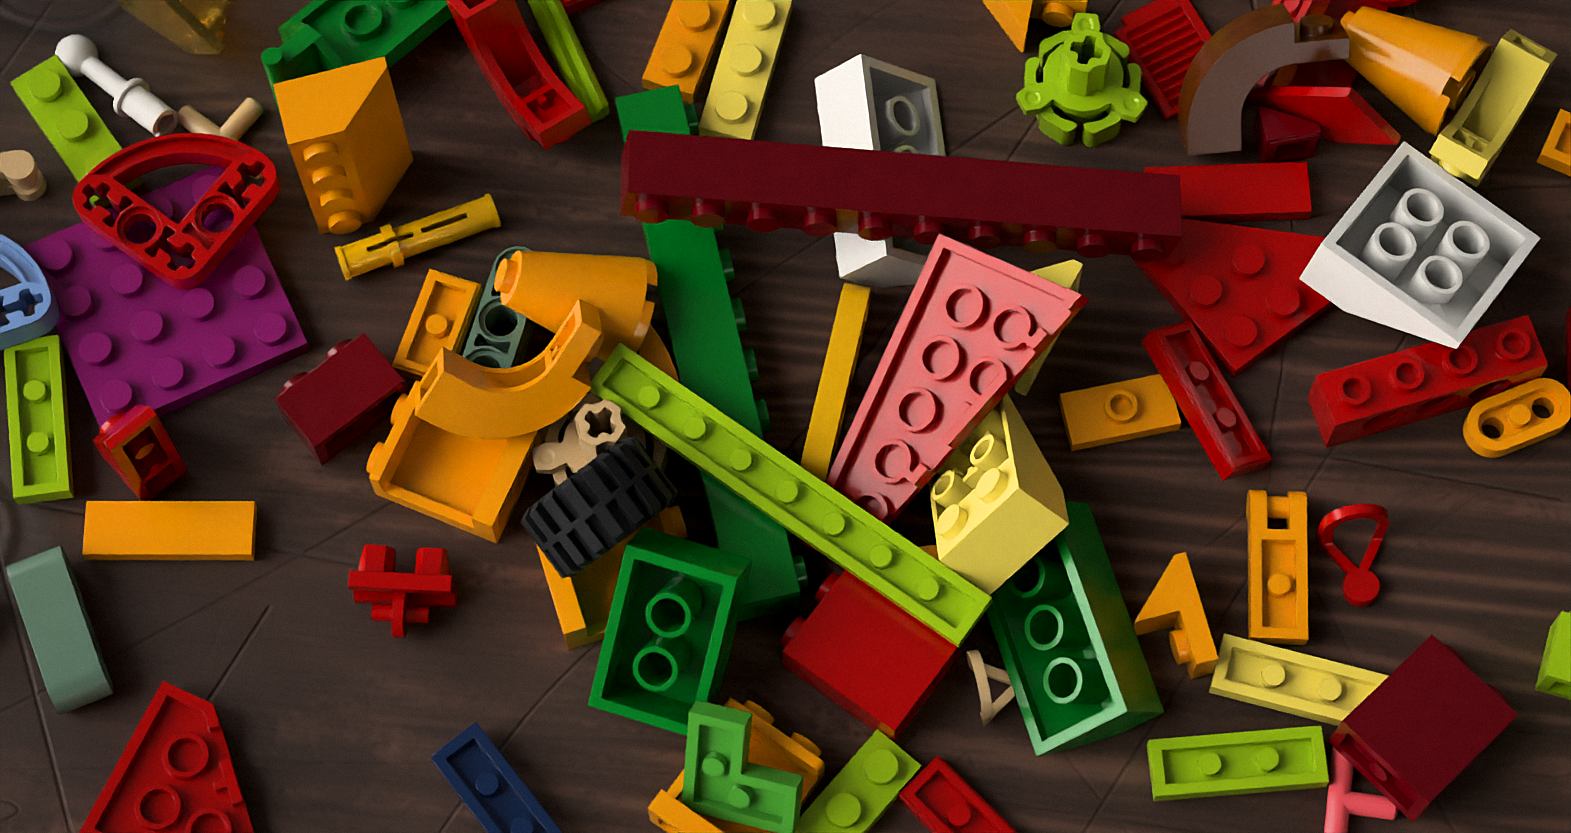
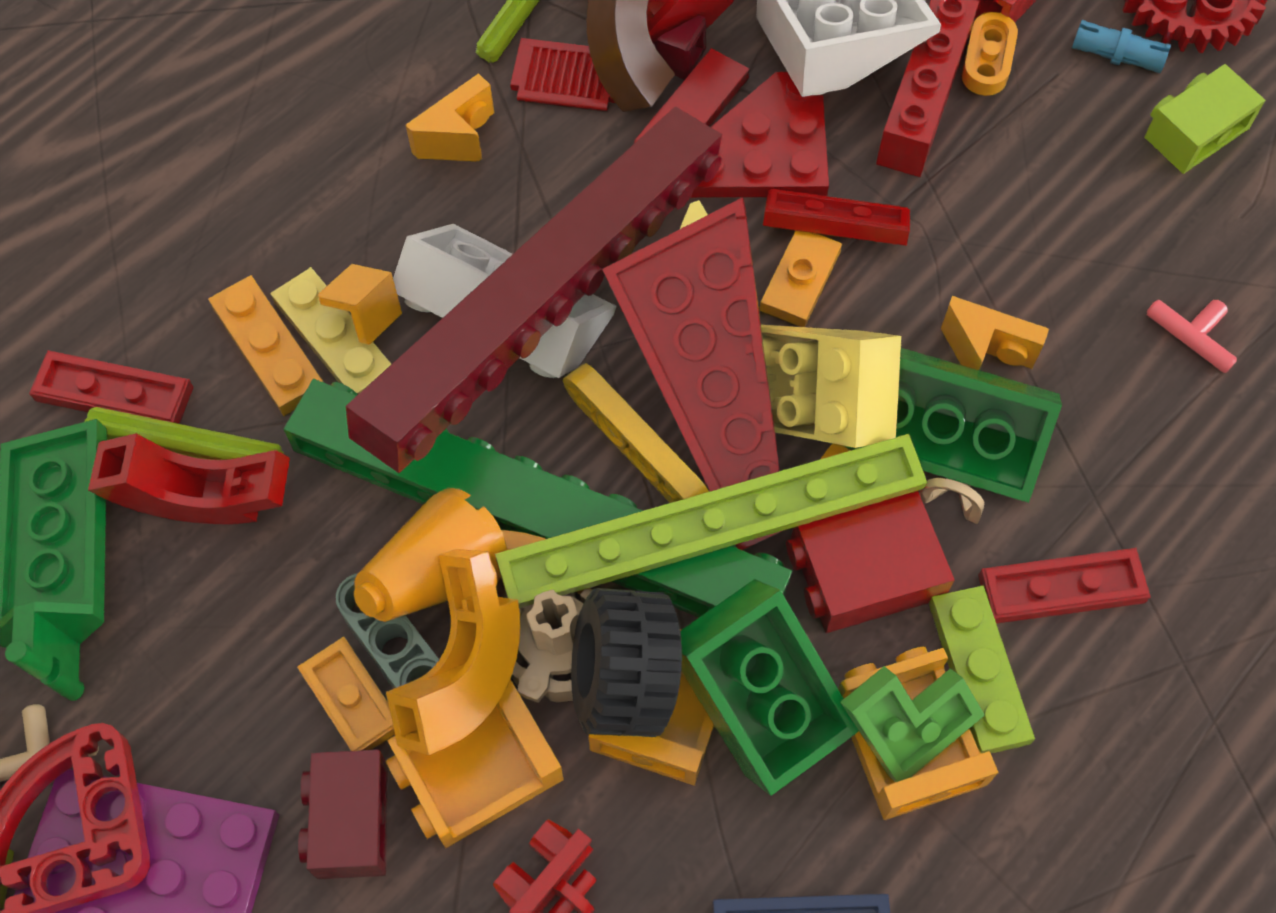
camera: 55 degrees left, 5 degrees down
(345, 141) = (140, 645): light orange slope -> none
(417, 237) = (253, 678): yellow pin -> none
(785, 67) = (369, 298): none -> light orange panel
(1082, 79) = (541, 126): lime piece -> none
(1237, 763) = (1124, 377): lime plate -> none
(1277, 569) = (993, 256): light orange plate -> none
(1290, 680) = (1094, 298): light yellow plate -> none
(1360, 584) = (1038, 220): red piece -> none
(1422, 727) = (1185, 245): dark red panel -> none

